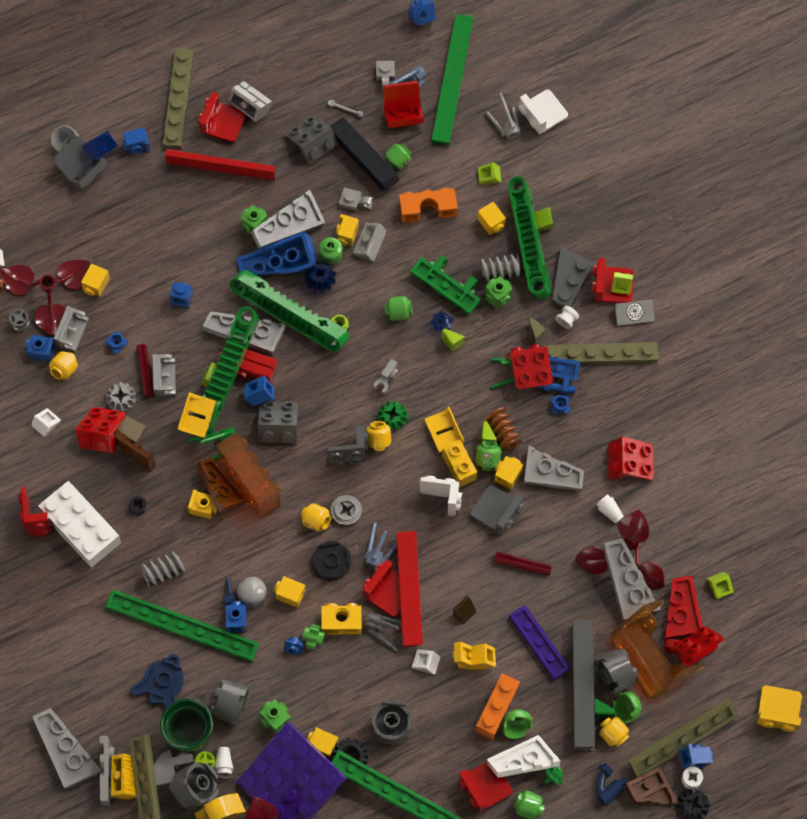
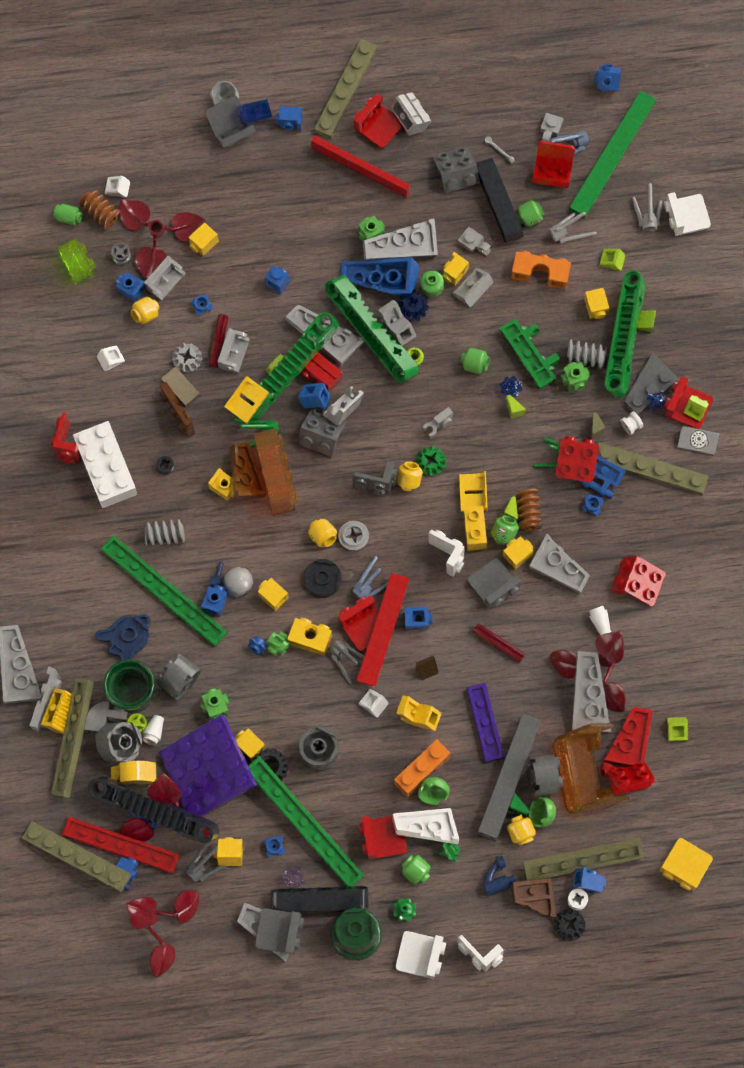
camera: 25 degrees right, 5 degrees up
(97, 429) = (153, 380): red bracket -> none
(291, 391) = (343, 406): none -> light grey hinge
(312, 299) = (396, 324): none -> light grey brick
(431, 164) = (559, 230): none -> light grey plant
(437, 560) = (412, 613): none -> blue brick
(584, 288) = (657, 400): none -> clear blue plant

